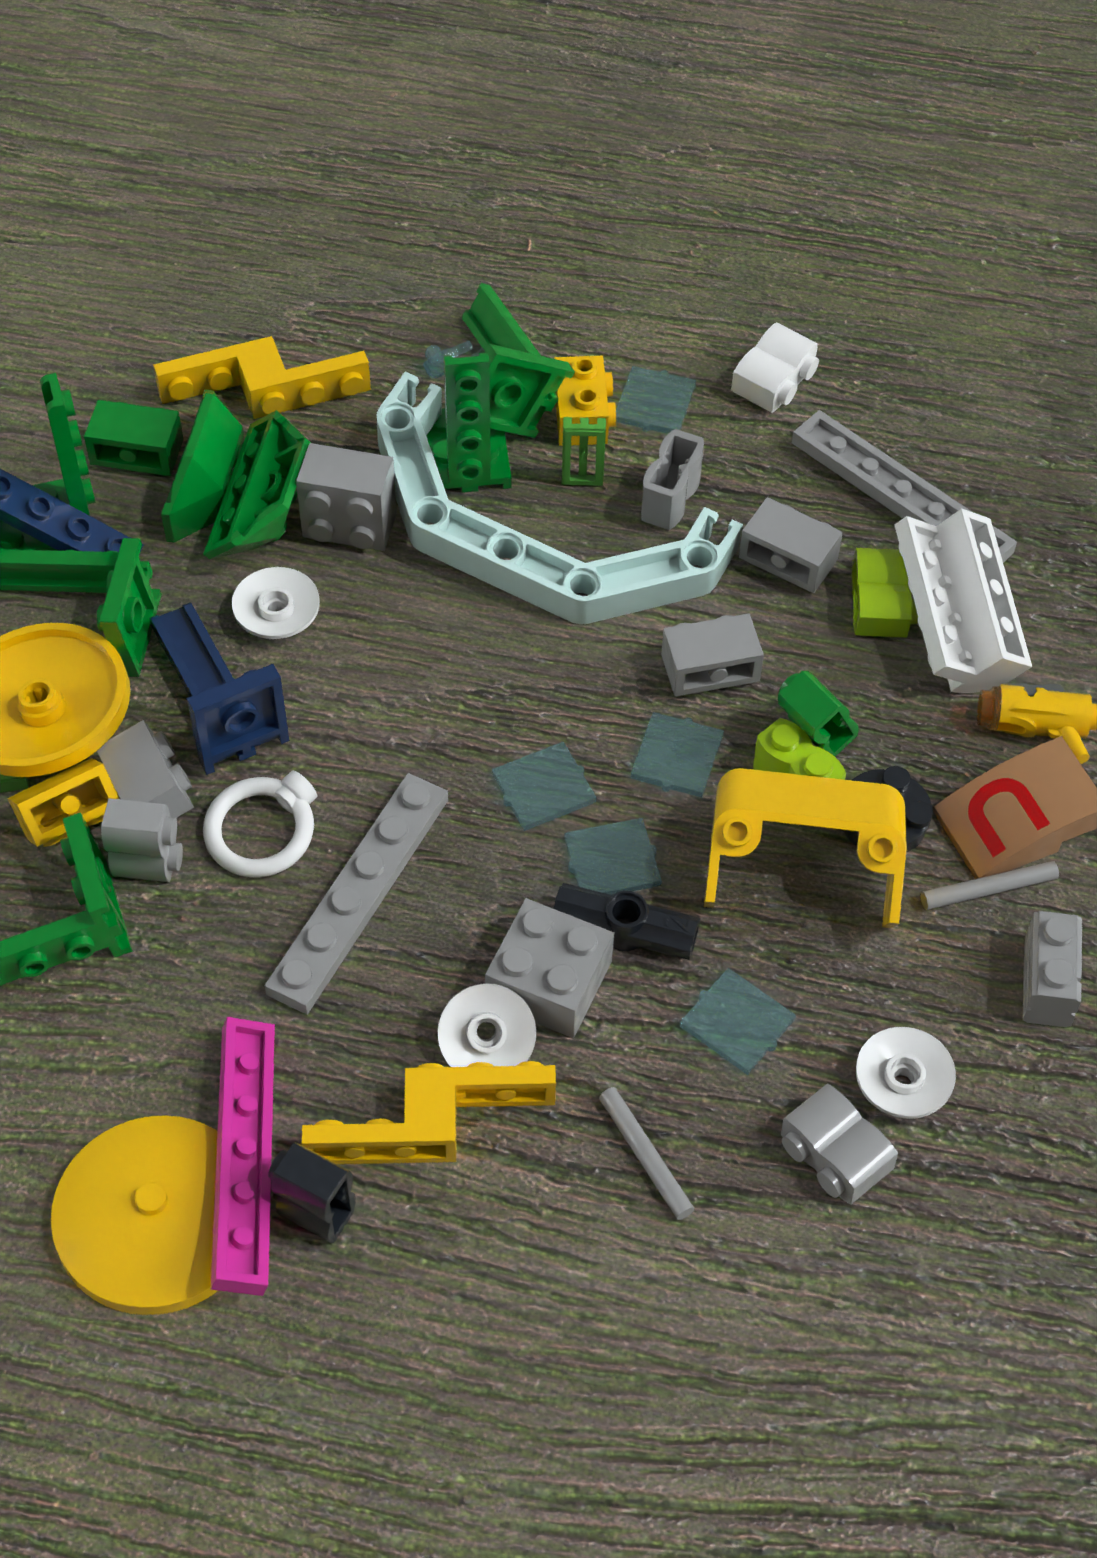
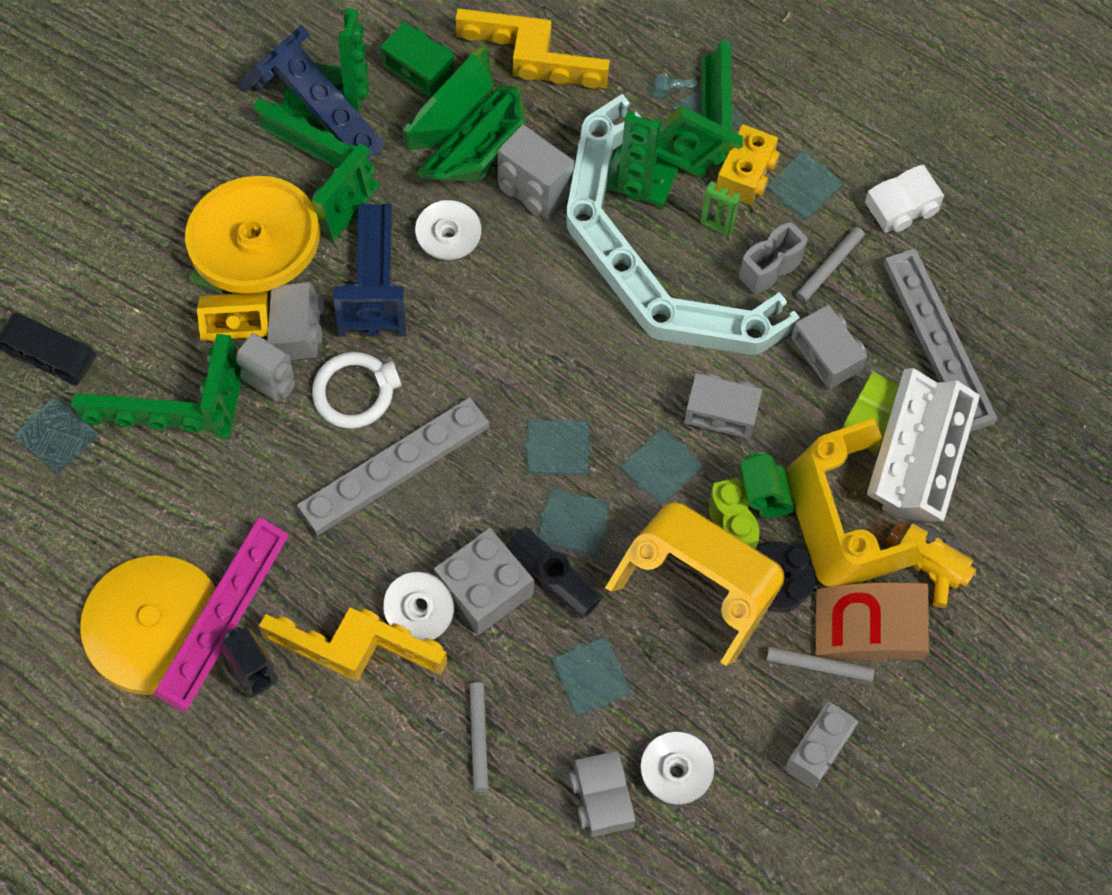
camera: 25 degrees right, 10 degrees up
(734, 467) = (830, 264): none -> light grey bar
(904, 727) = (835, 555): none -> yellow windscreen

